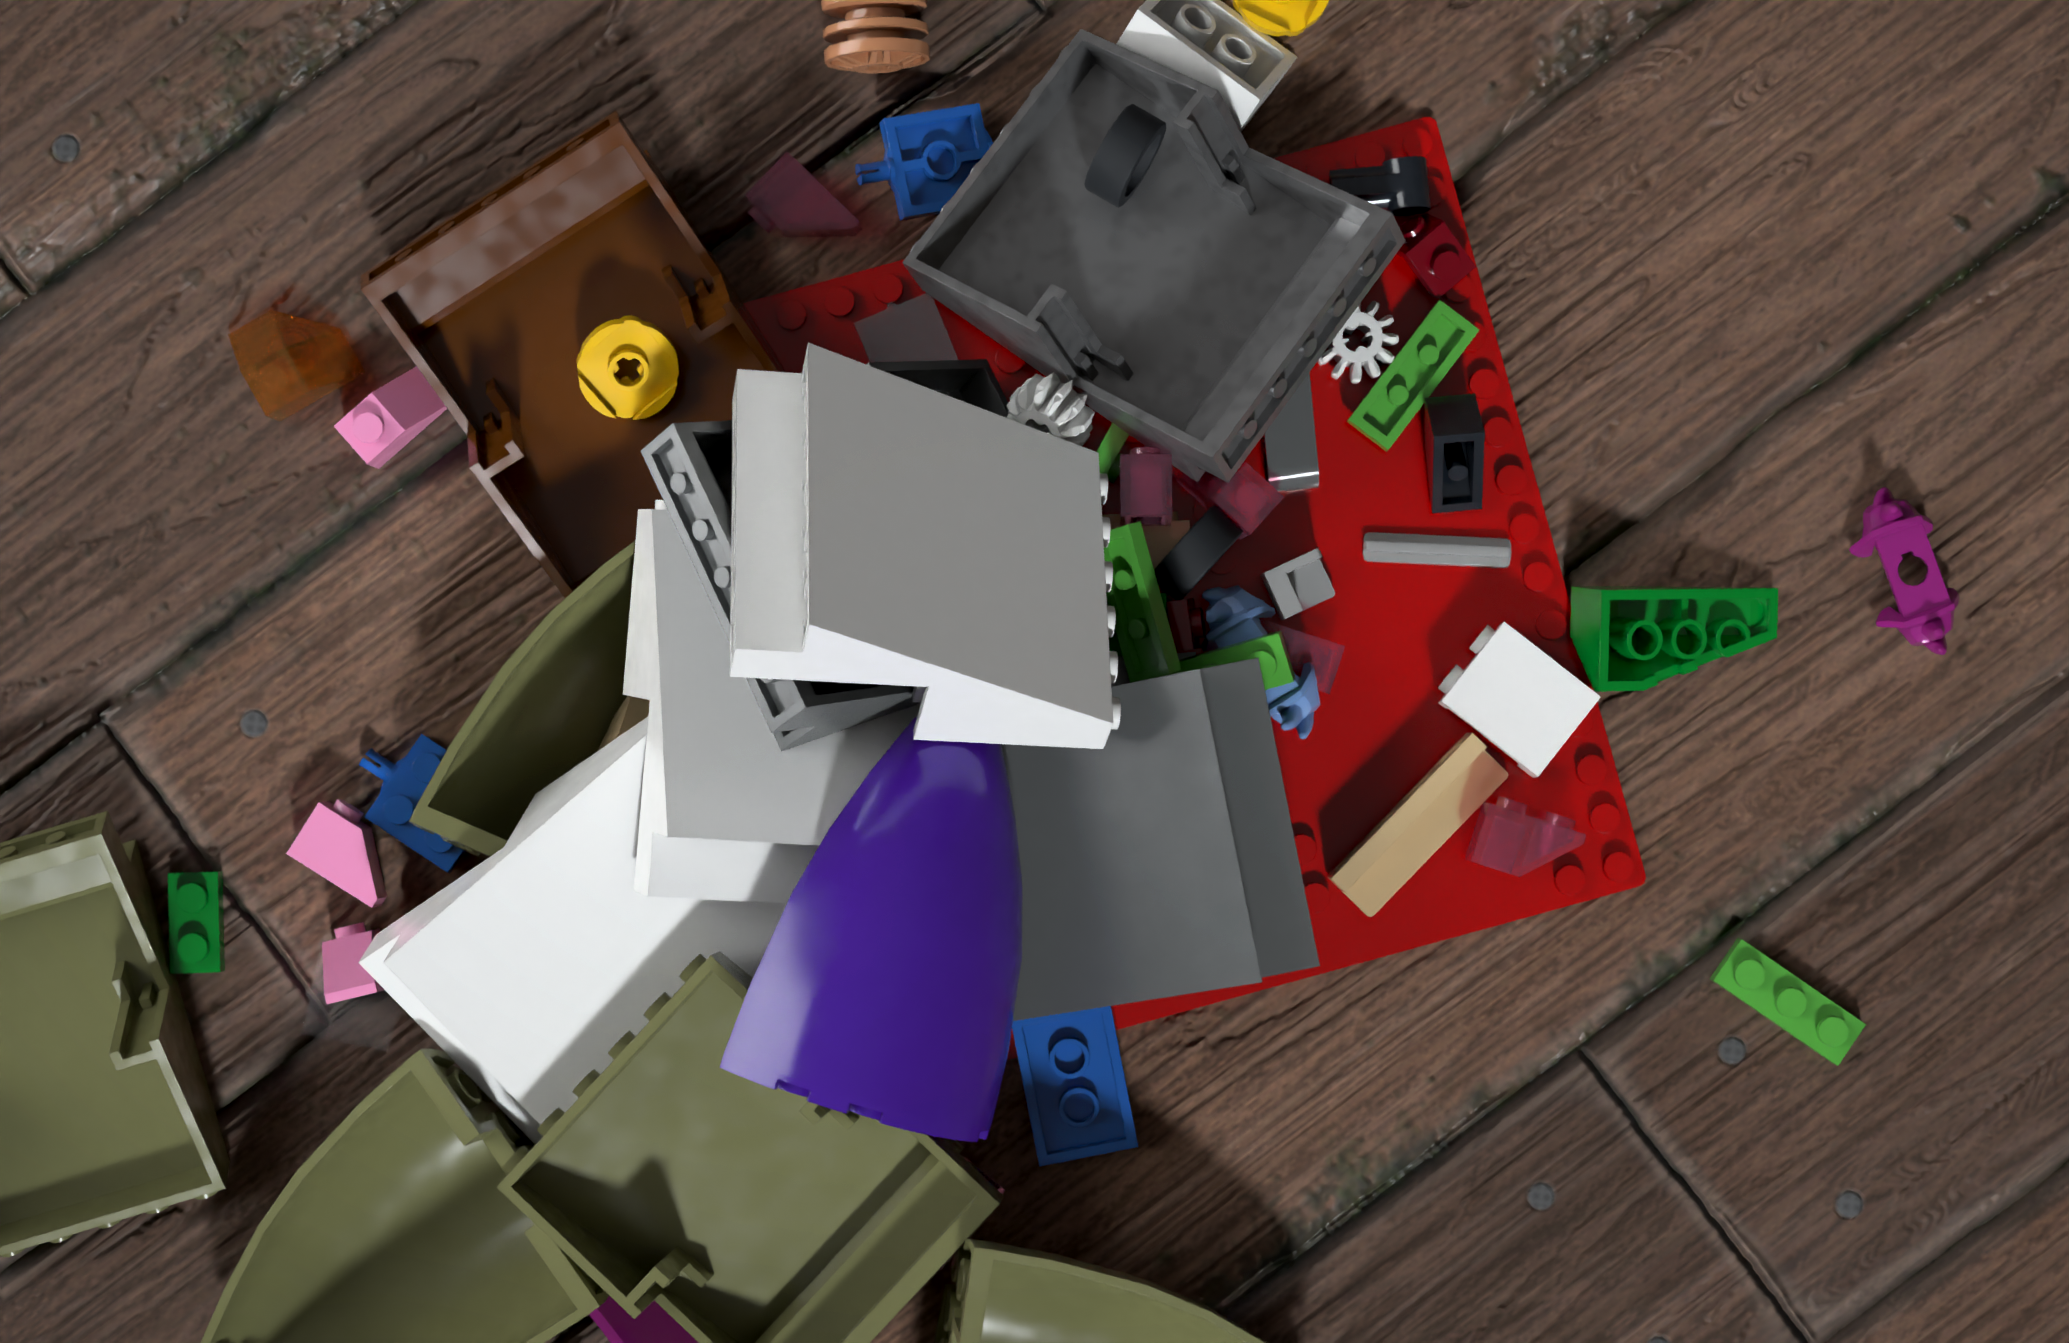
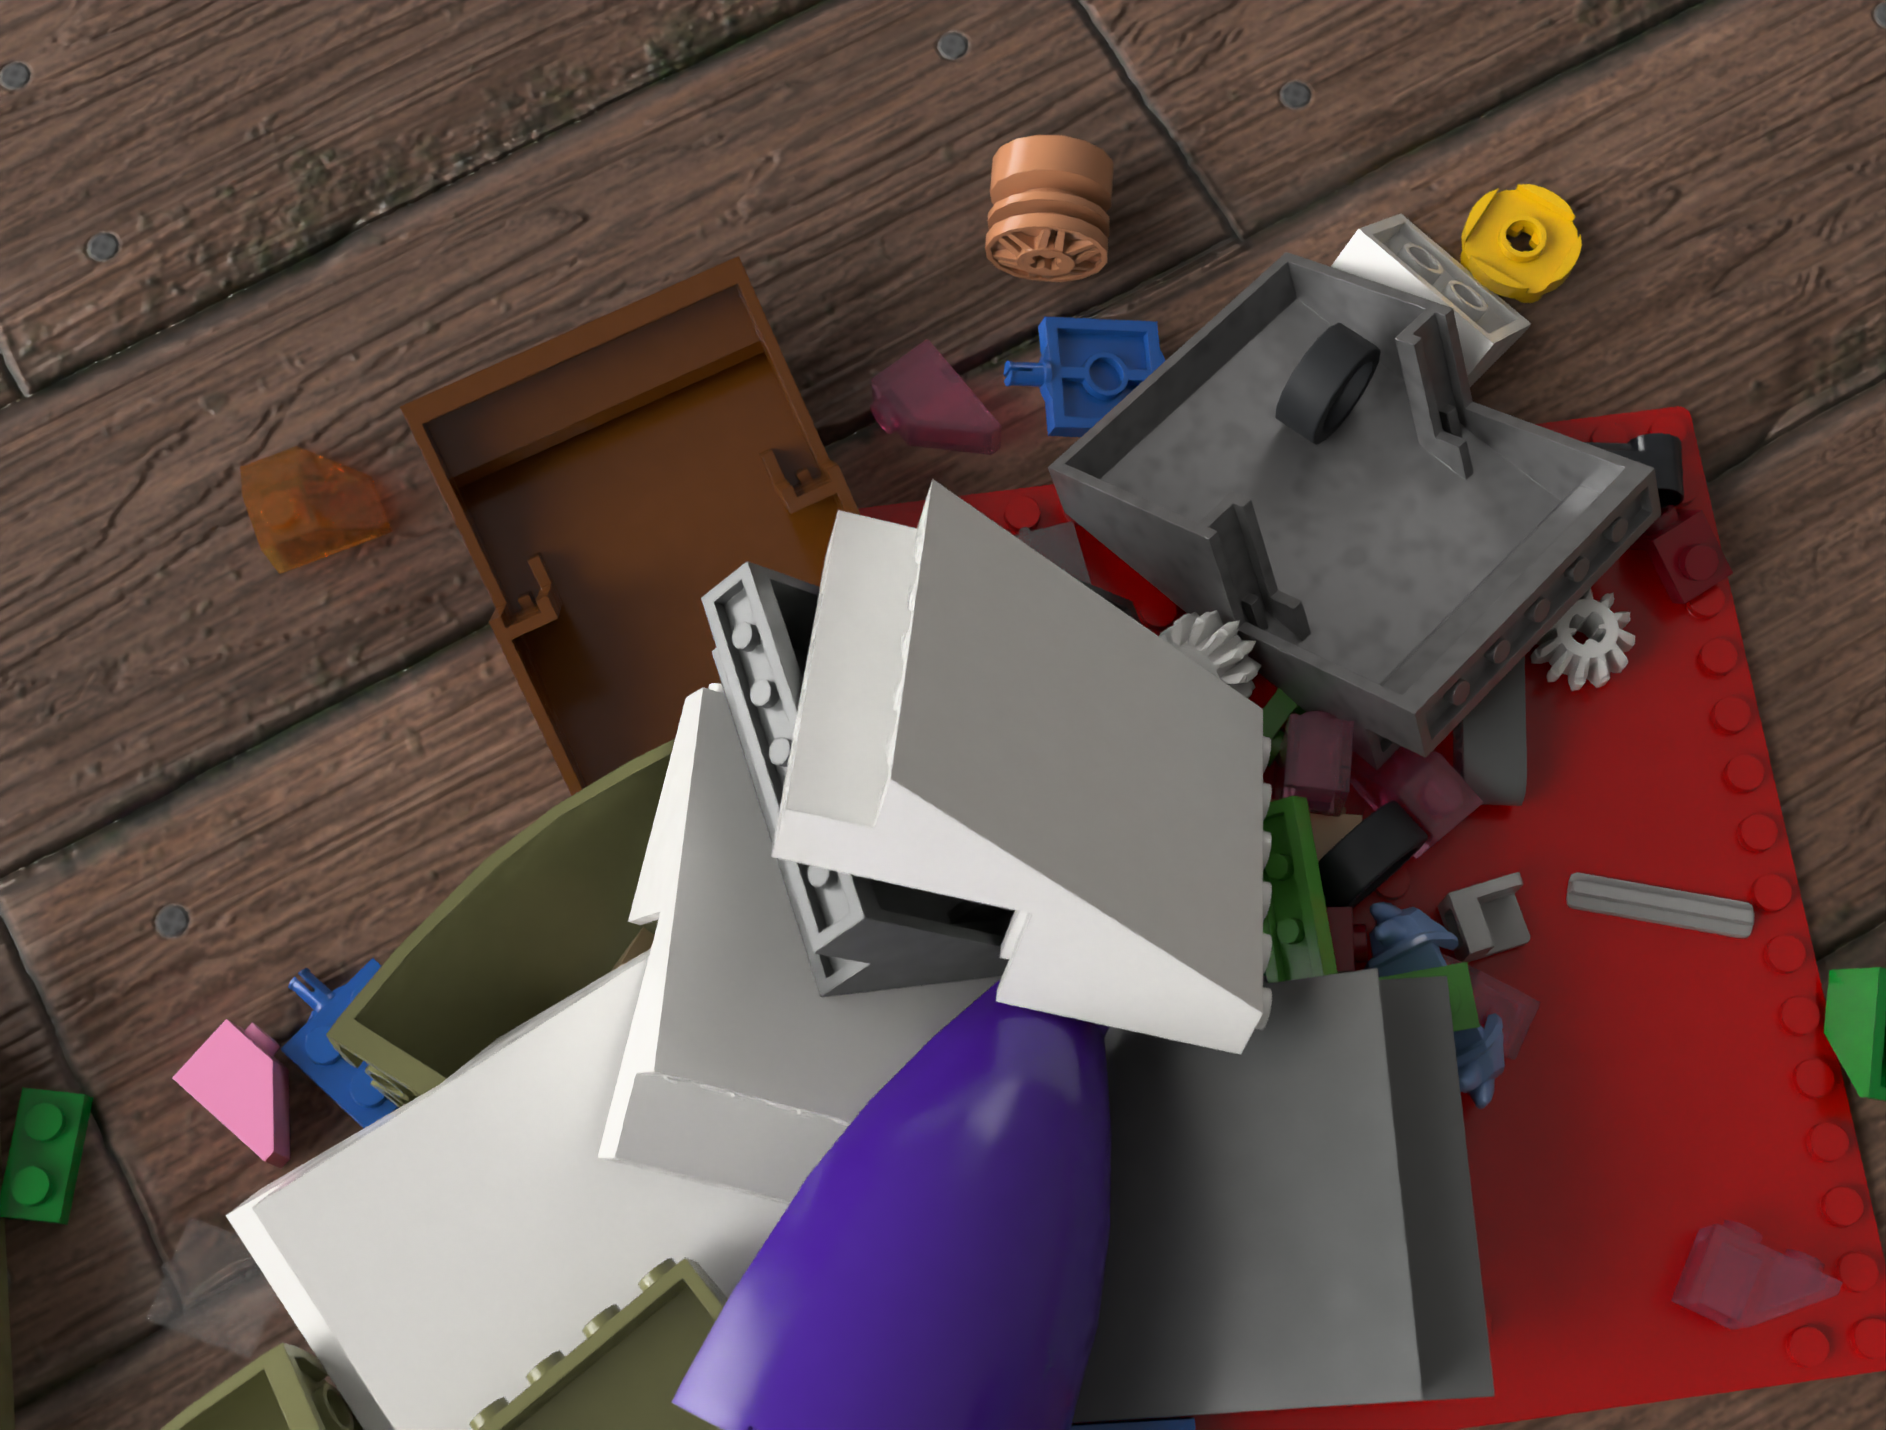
camera: 10 degrees right, 15 degrees down
(341, 971) = (209, 1242): bright pink slope -> none
(391, 417) = (411, 579): bright pink slope -> none
(626, 397) = (667, 541): yellow plate -> none
(1413, 375) = (1647, 689): bright green plate -> none
(1418, 825) = (1615, 1246): tan panel -> none
(1454, 452) = (1694, 785): black slope -> none
(1517, 697) = (1760, 1095): white panel -> none

